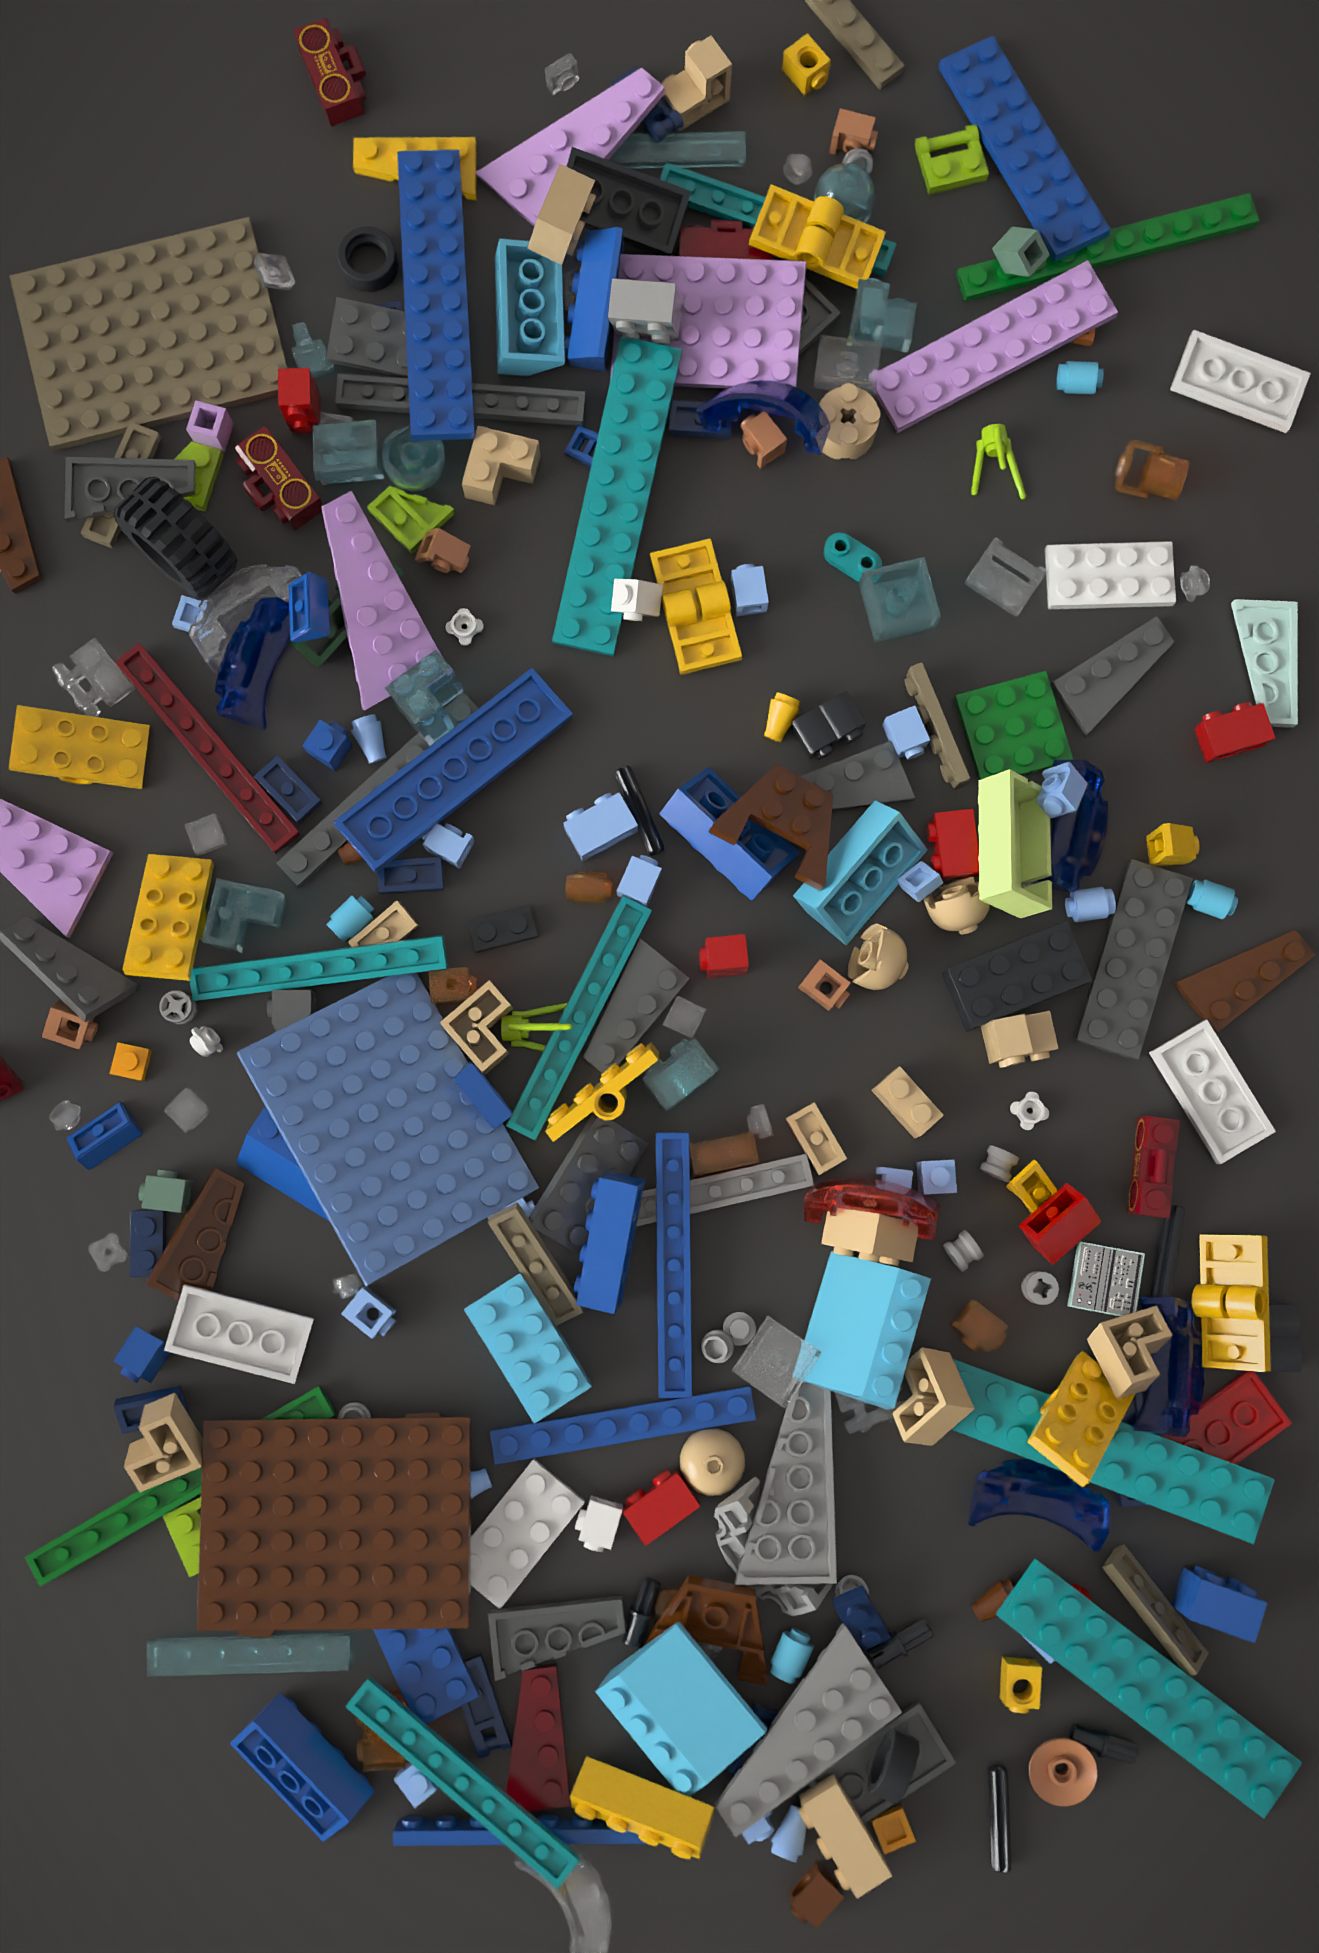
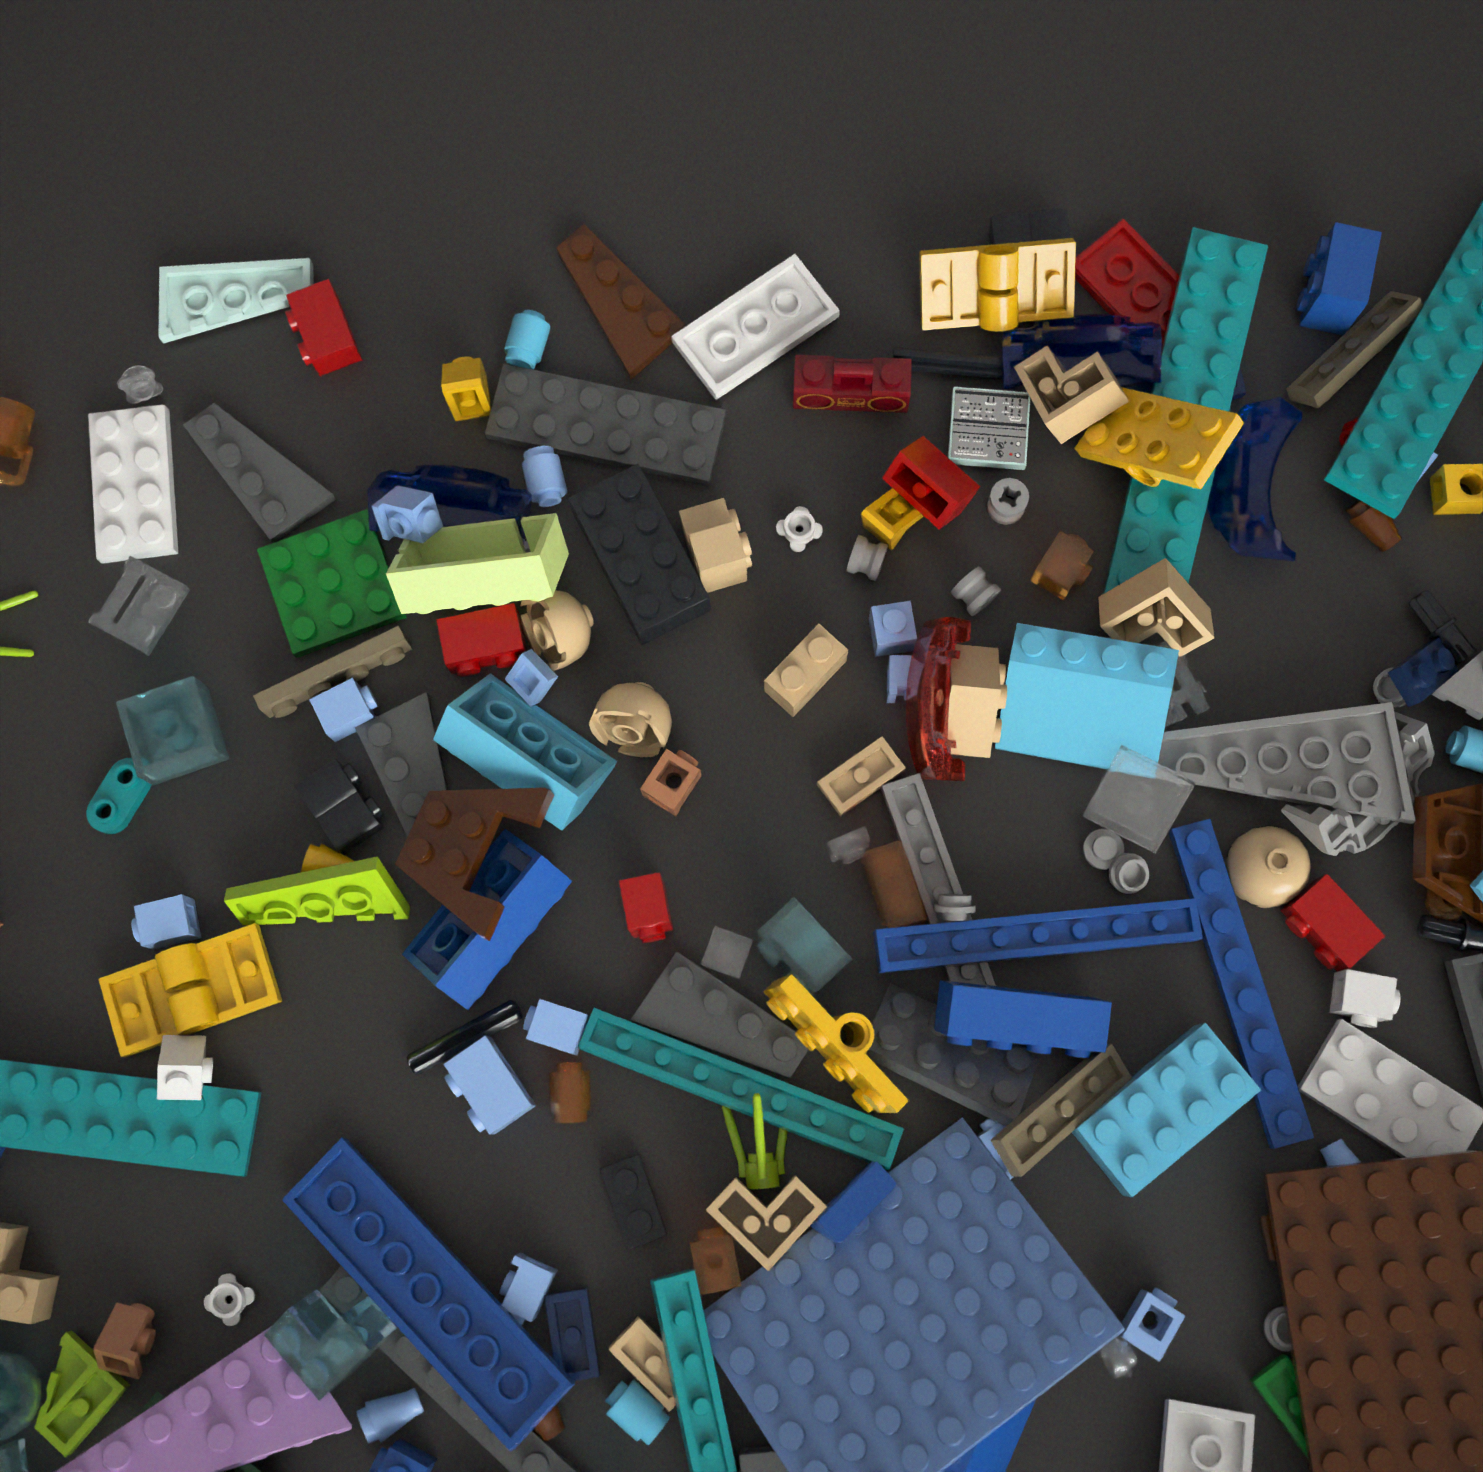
camera: 90 degrees left, 5 degrees down
(702, 1198) = (954, 906): none -> light grey plate
(758, 707) = (320, 894): none -> lime wing

